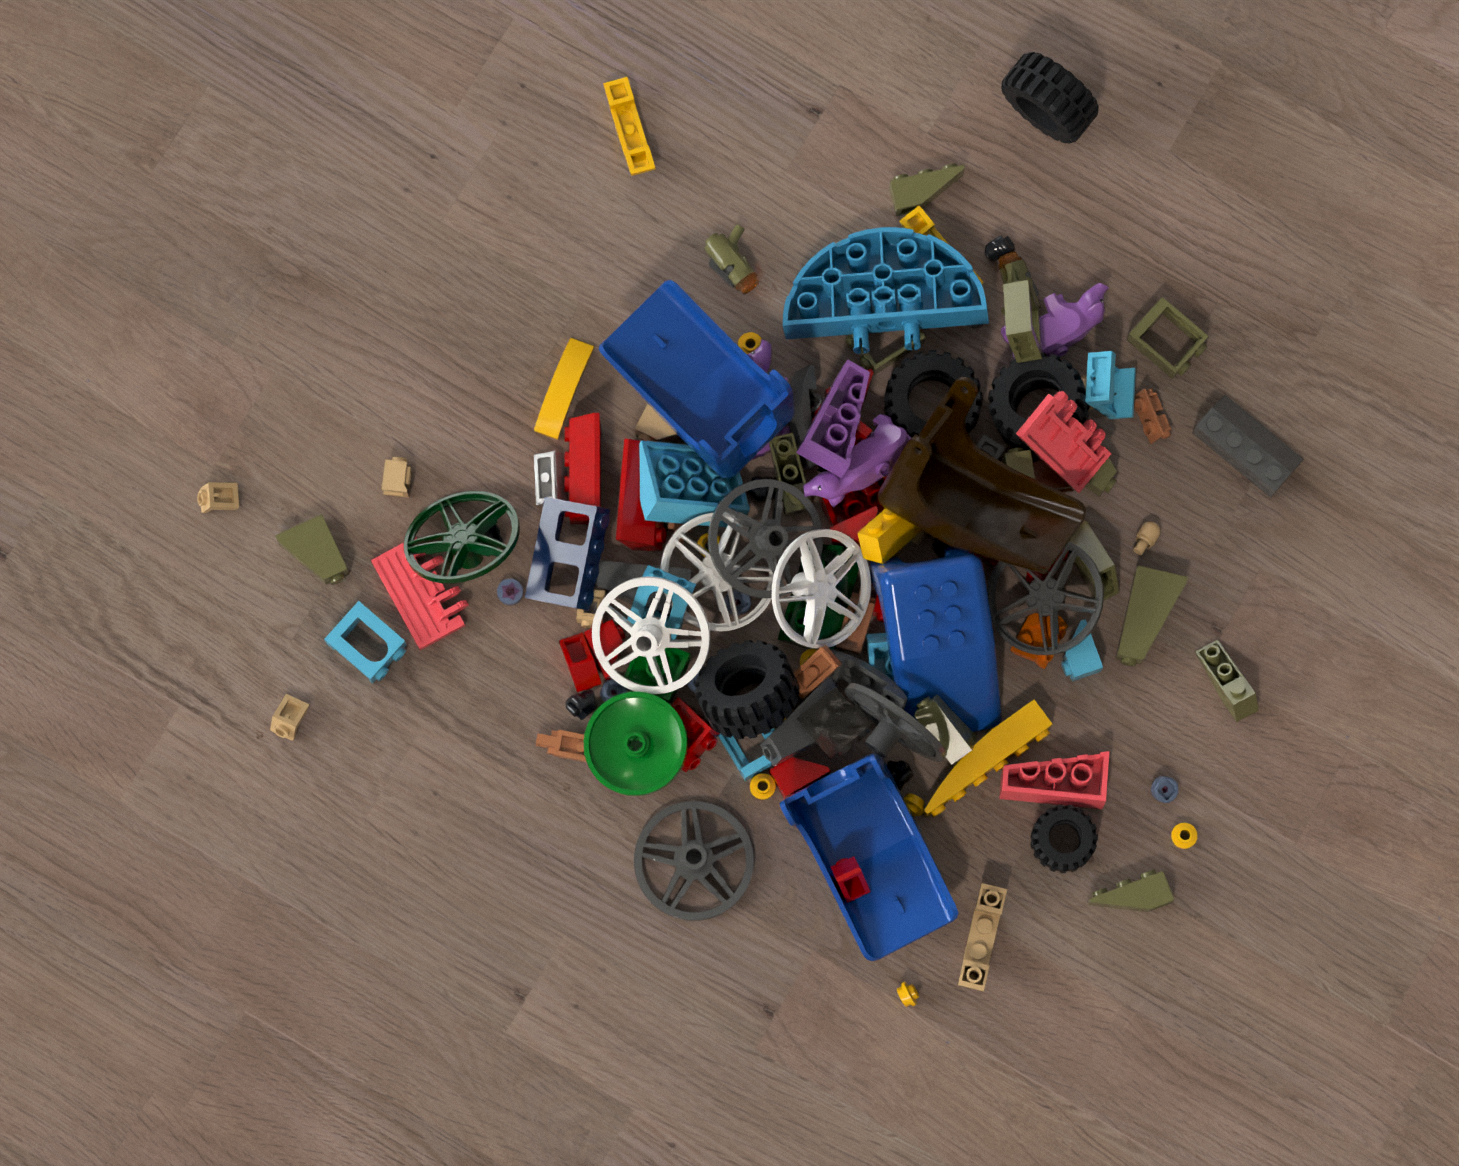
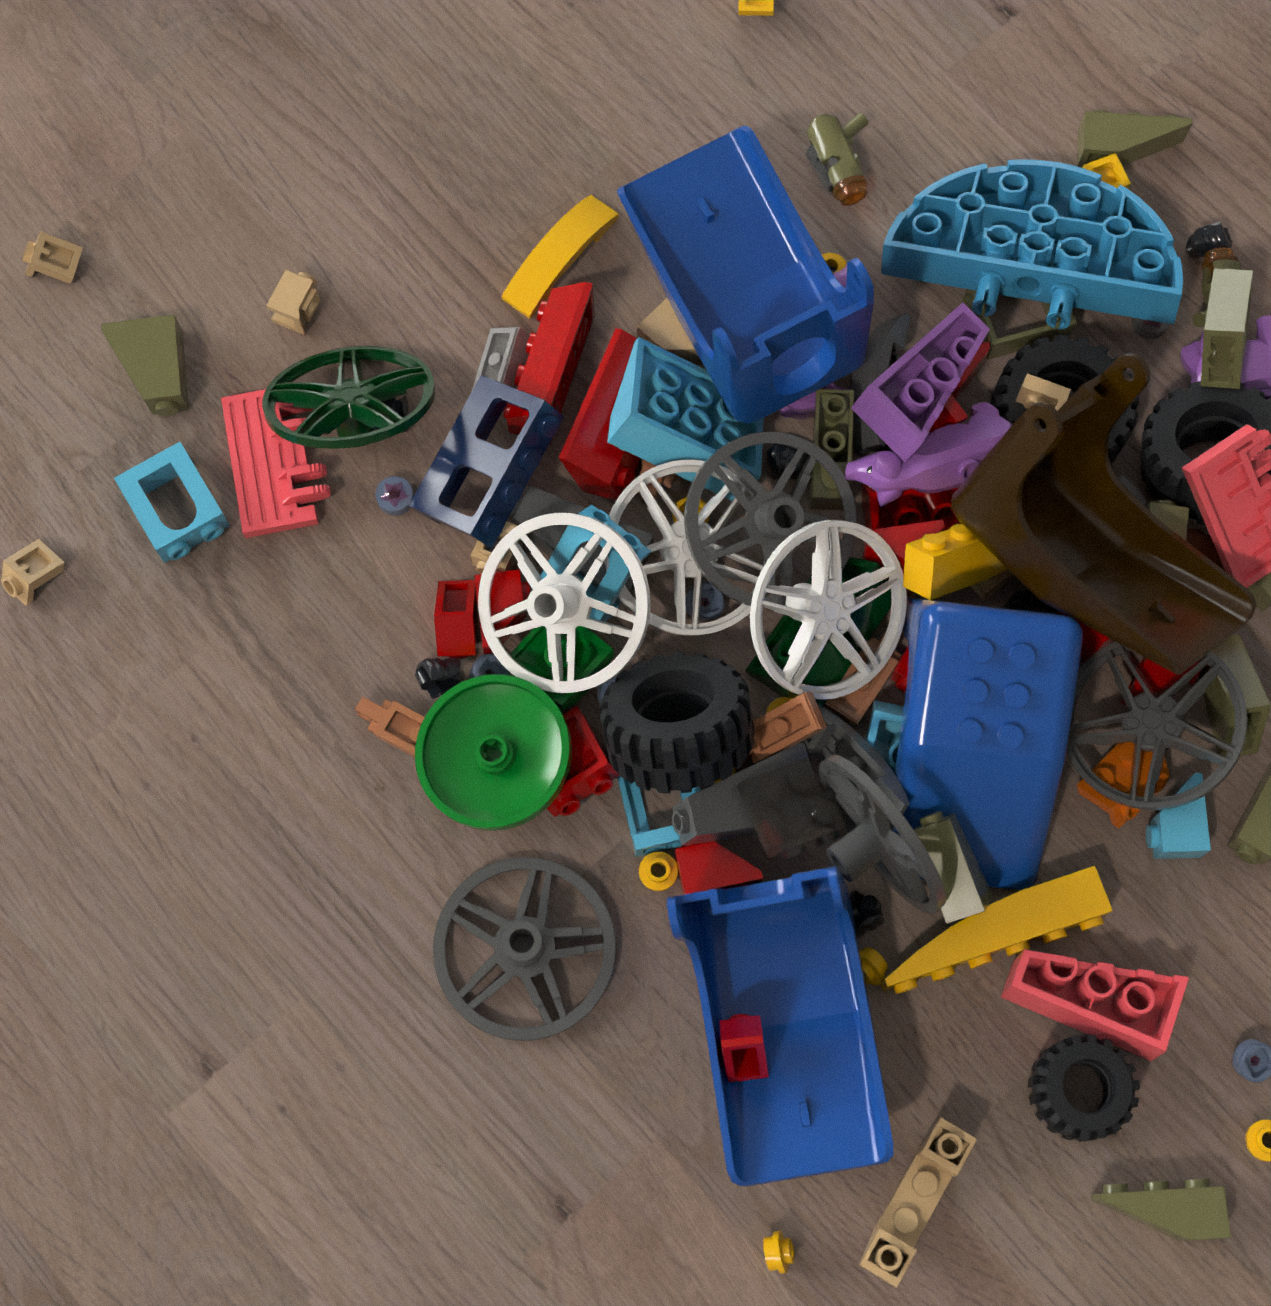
camera: 20 degrees right, 5 degrees down
(916, 403) = (1039, 390): none -> tan bracket

